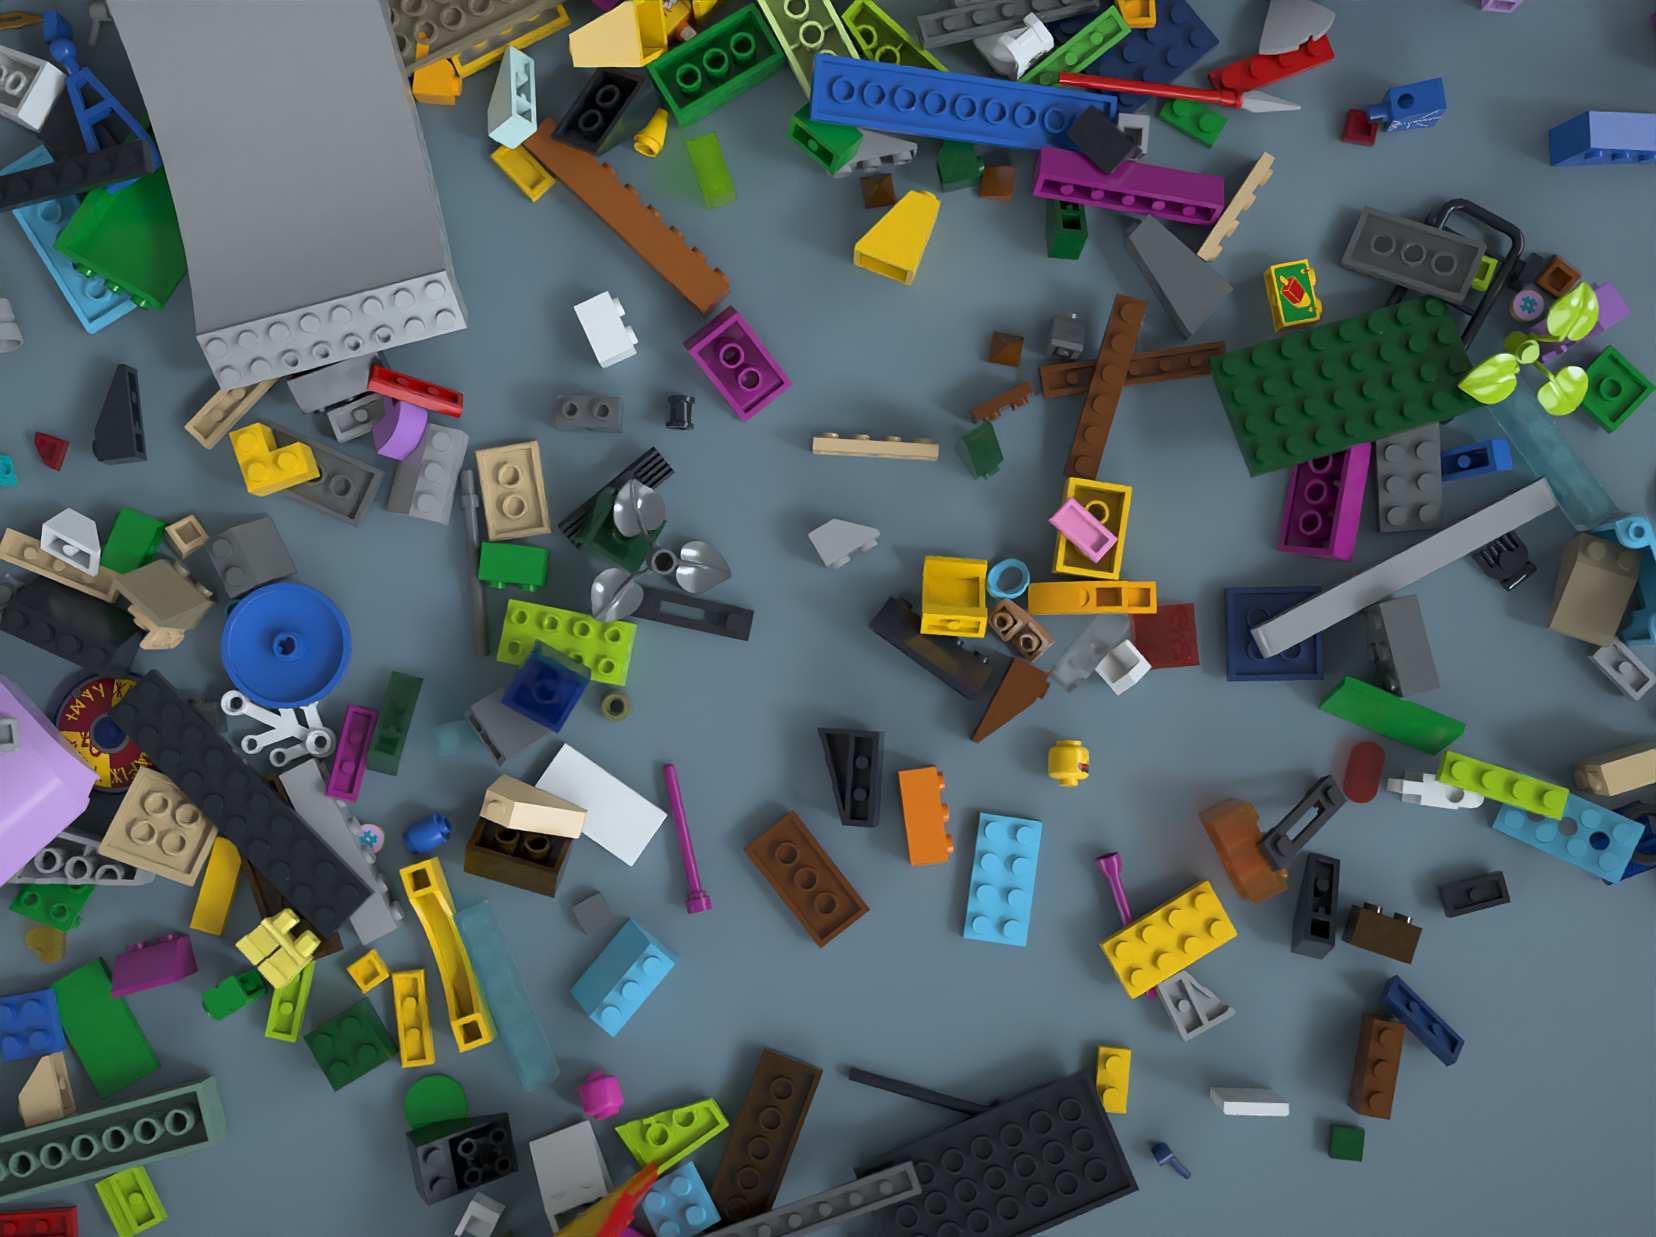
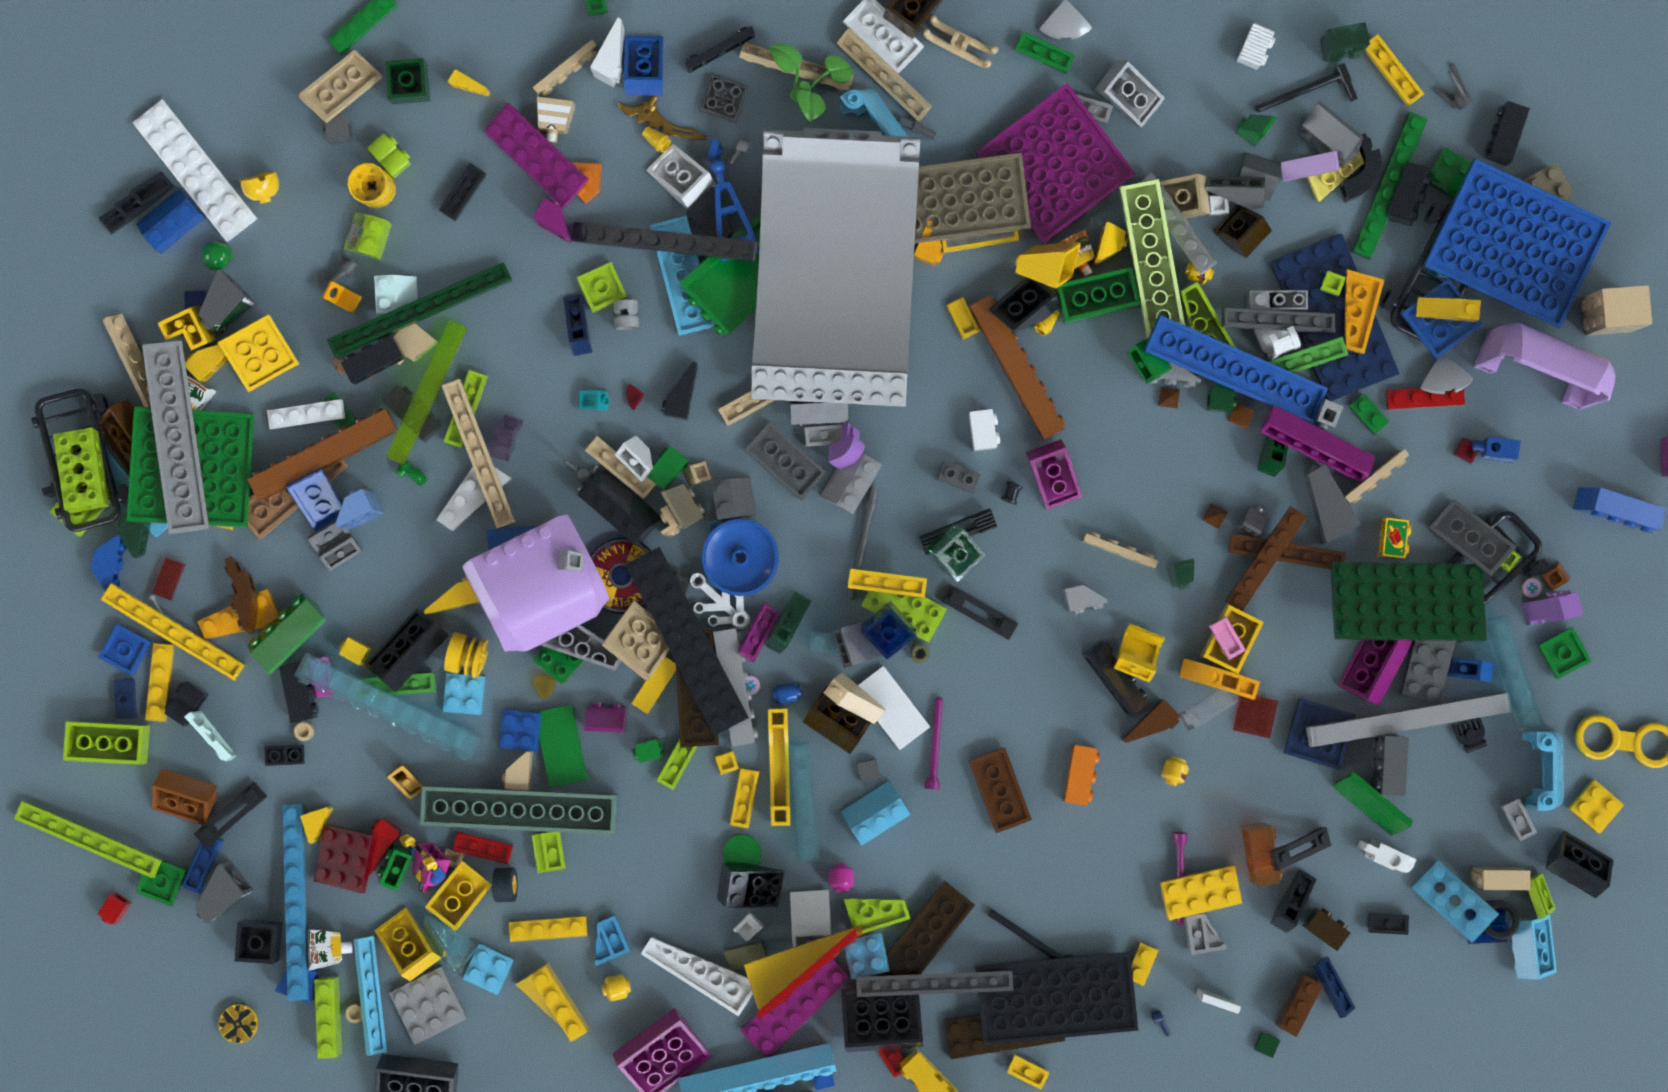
camera: 15 degrees right, 0 degrees up
(266, 466) = (764, 452): yellow brick -> none
(277, 949) = (685, 723): light yellow hips -> none
(351, 1044) = (705, 801): dark green brick -> none
(415, 391) = (862, 432): red tile -> none
(513, 100) = (971, 279): light aqua slope -> none
(513, 491) = (898, 508): tan tile -> none
(513, 565) = (886, 552): green brick -> none
(522, 612) = (887, 583): none -> yellow plate
(636, 511) = (991, 587): dark grey plant -> none
(711, 171) = (1074, 356): clear neon green brick -> none
(855, 772) = (1048, 737): black wedge -> none
(899, 238) = (1174, 433): yellow slope -> none
(993, 578) = (1165, 648): medium azure piece -> none
(1002, 879) = (1114, 827): medium azure plate -> none
(1012, 398) = (1210, 547): reddish brown plate -> none
(1018, 626) = (1172, 684): medium nougat slope -> none
(1102, 140) = (1311, 413): black panel -> none
(1122, 667) = (1224, 725): white panel -> none
(1251, 101) = (1407, 416): red piece -> none
(1363, 772) = (1346, 832): clear red tile -> none
(1501, 785) = (1423, 864): lime plate -> none
(1568, 317) = (1533, 647): lime plant -> none
(1593, 588) = (1515, 767): dark tan slope -> none

